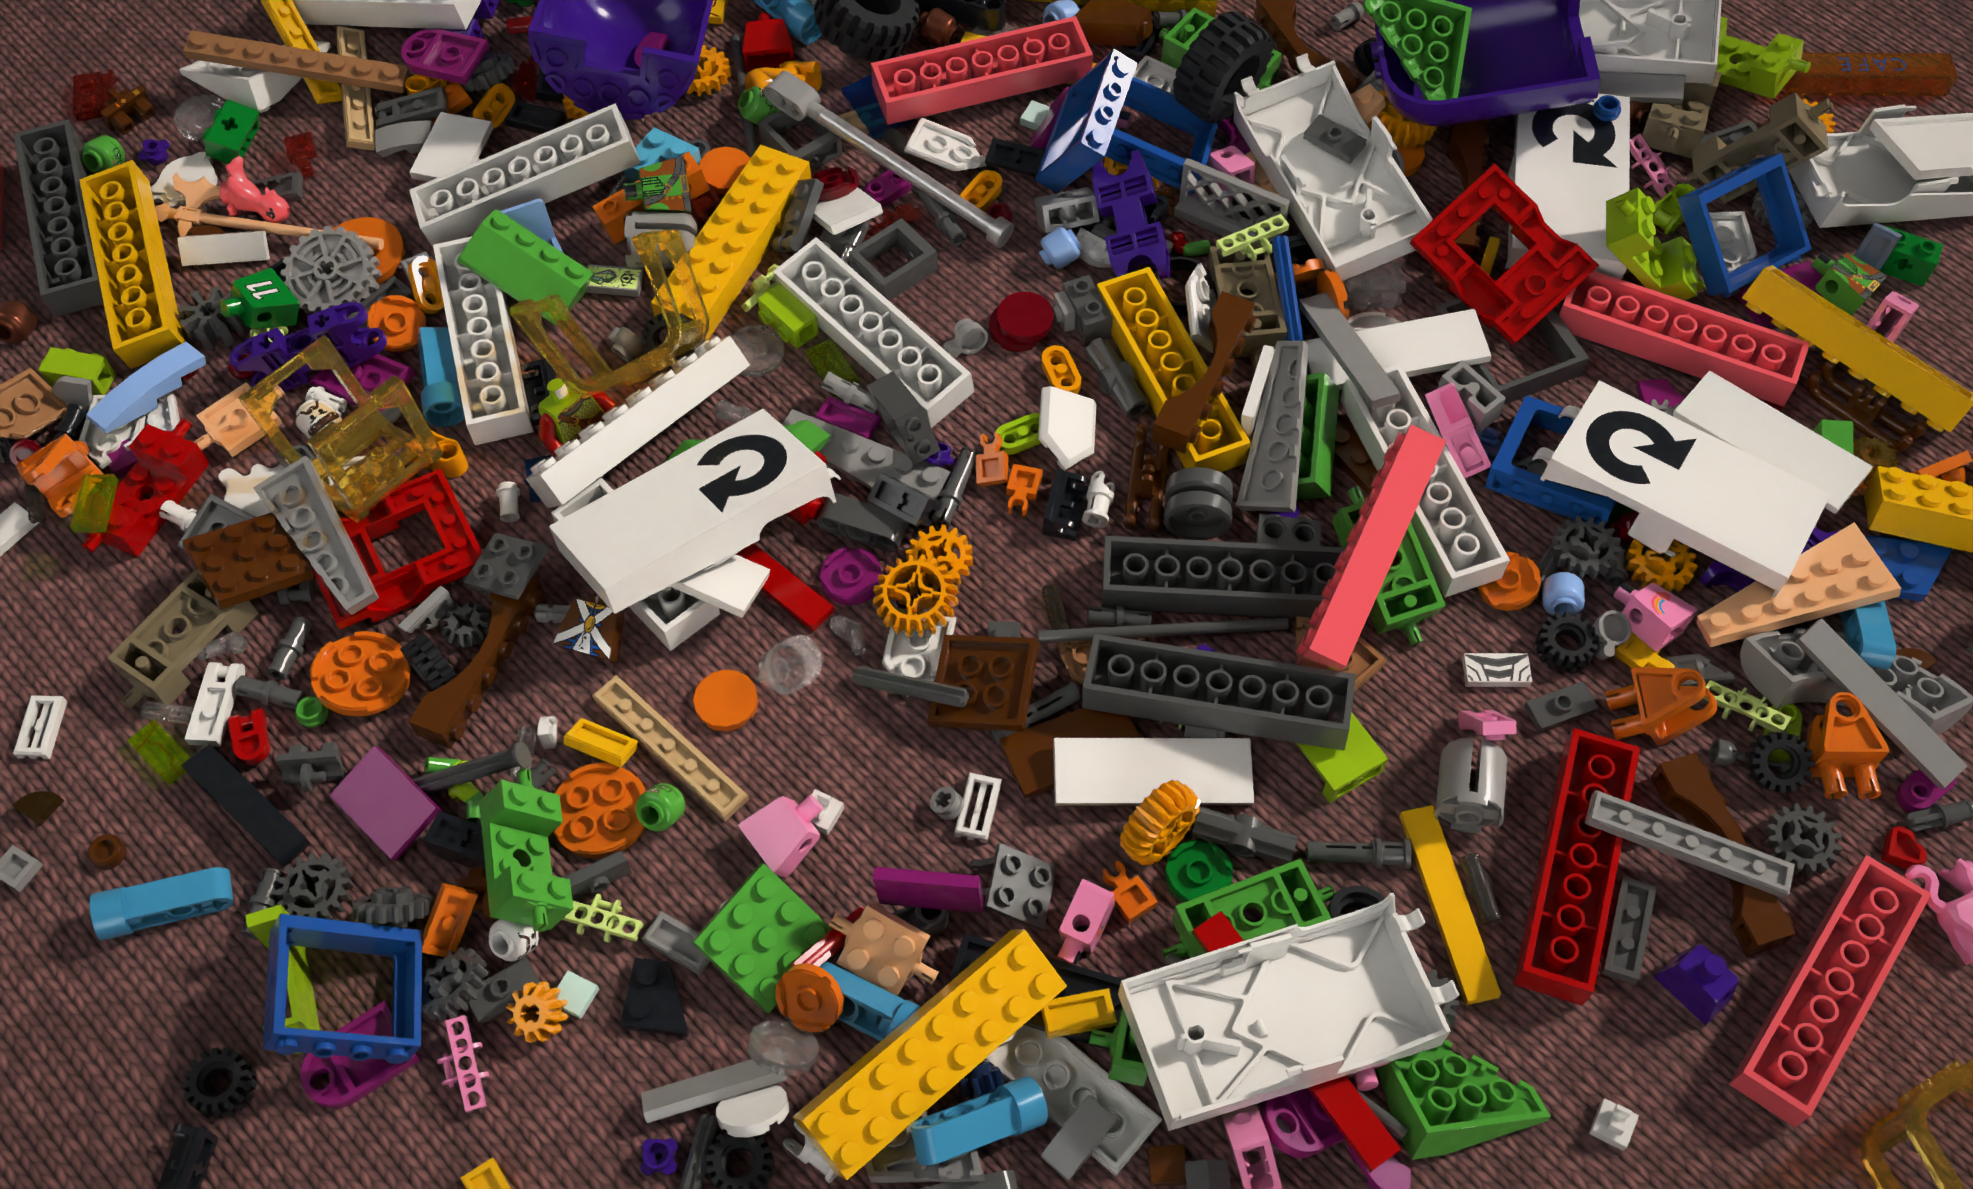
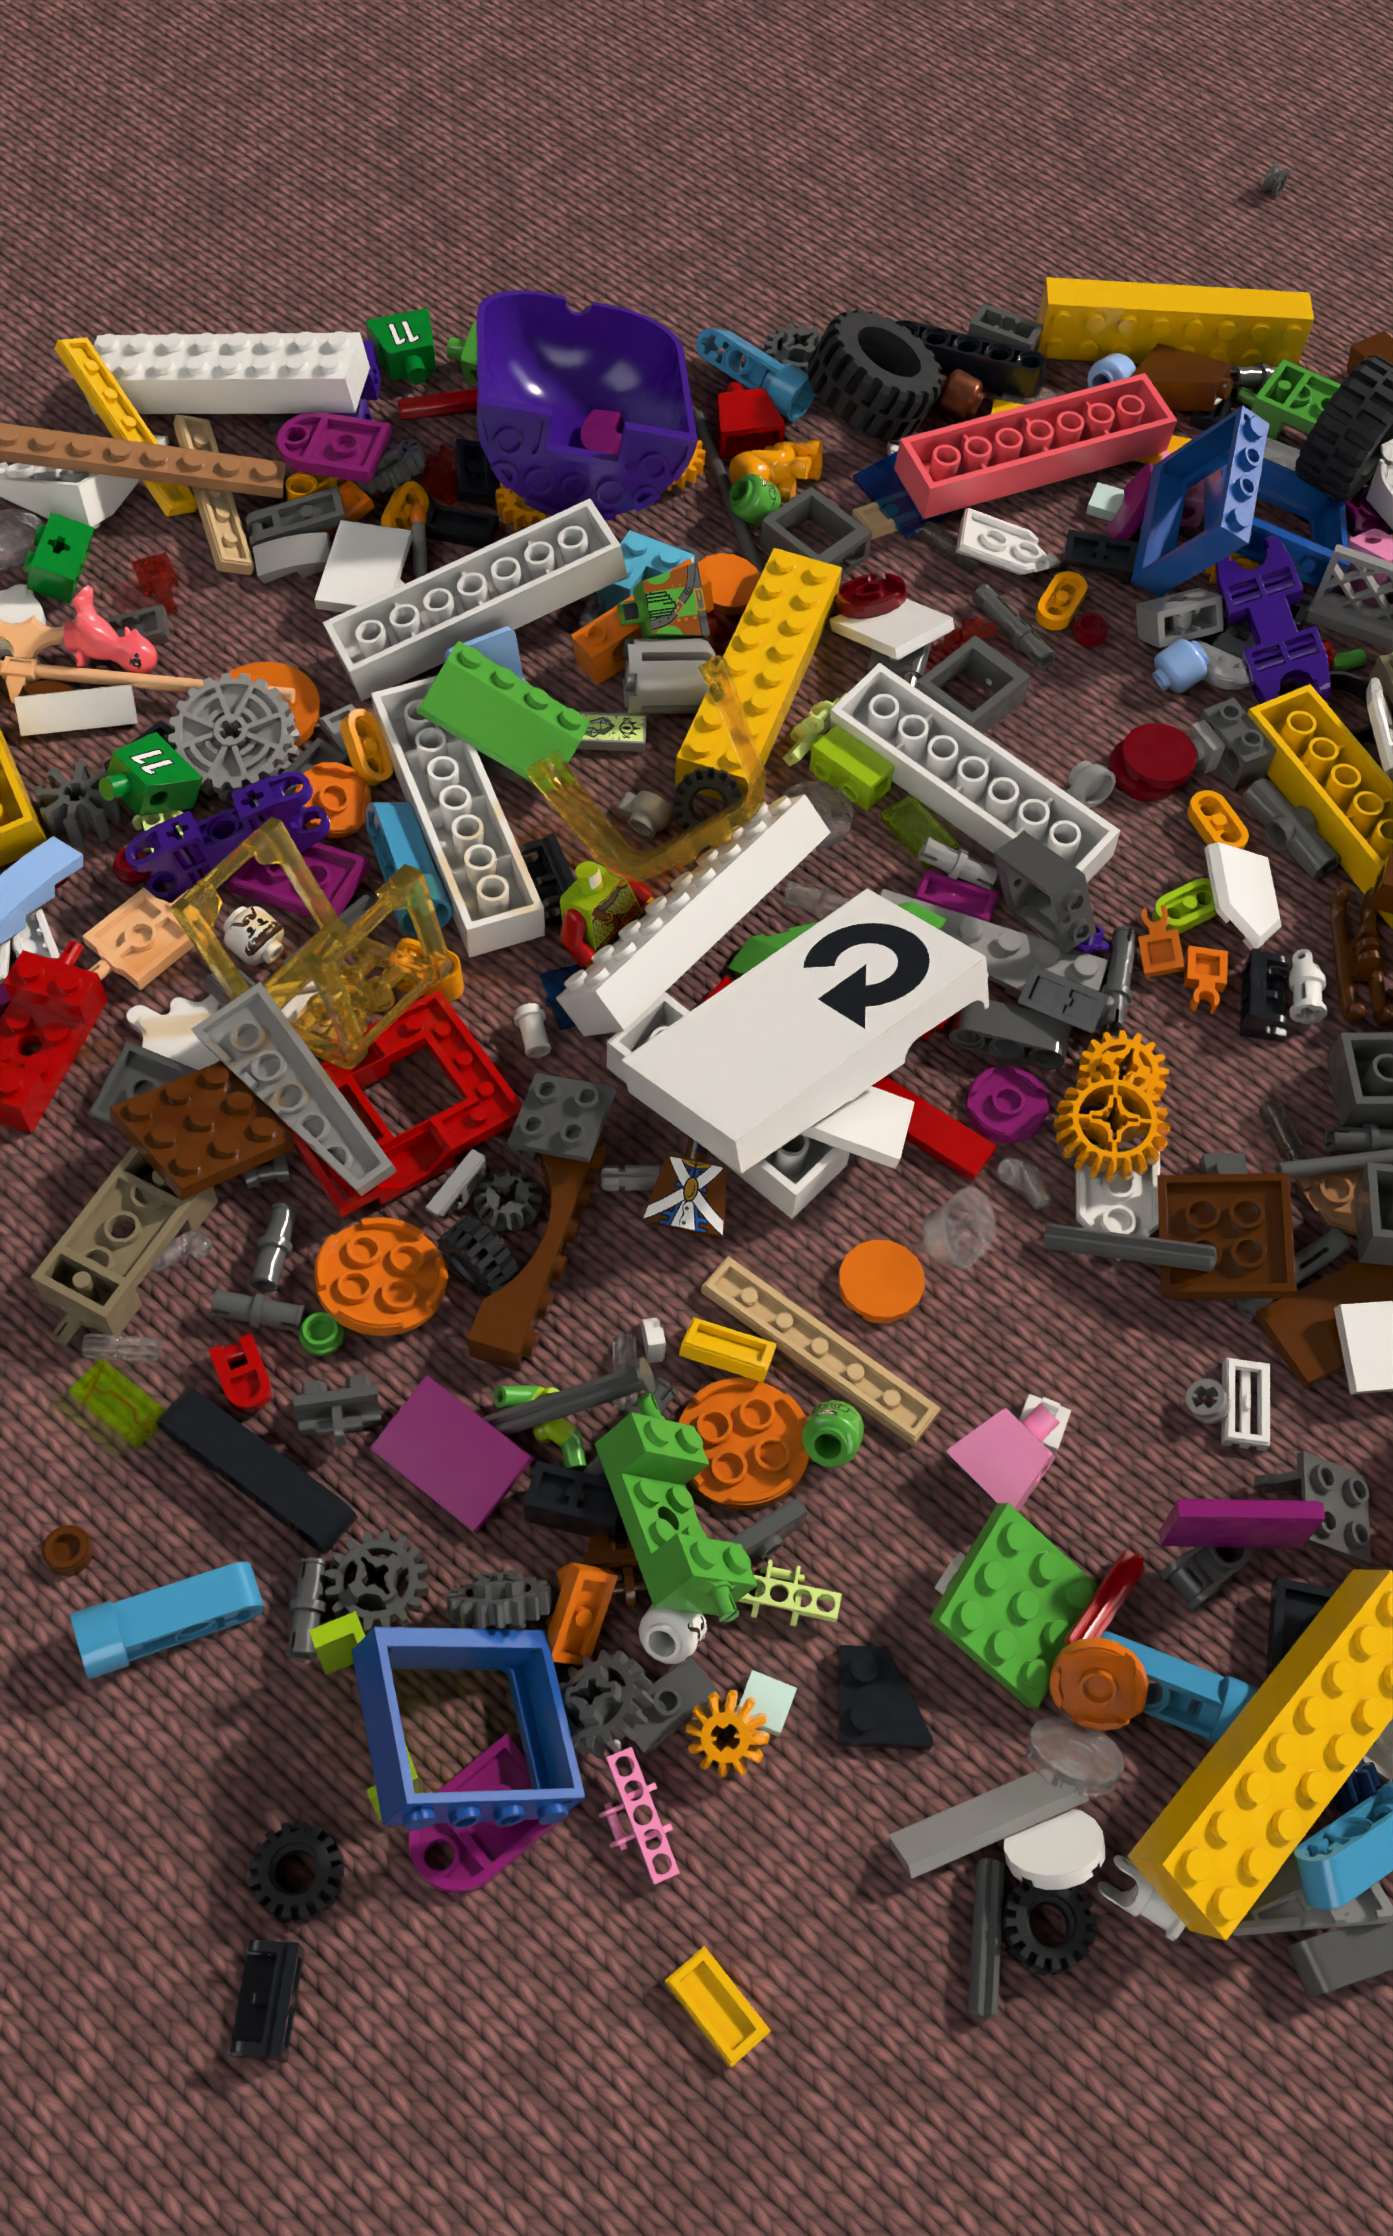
camera: 10 degrees left, 0 degrees up
(178, 514) = (83, 1073): white pin -> none
(213, 704) = (183, 1332): white plate -> none
(335, 402) = (247, 899): white pin -> none
(500, 127) = (419, 549): none -> light grey piece
(658, 1146) = (938, 1910): dark purple plate -> none
(674, 941) = (891, 1619): light grey tile -> none
(798, 216) = (840, 638): dark grey plate -> none
(802, 100) = (817, 488): flat silver piece -> none
(883, 949) = (1179, 1607): light nougat plate -> none
(889, 188) = (943, 593): magenta plate -> none

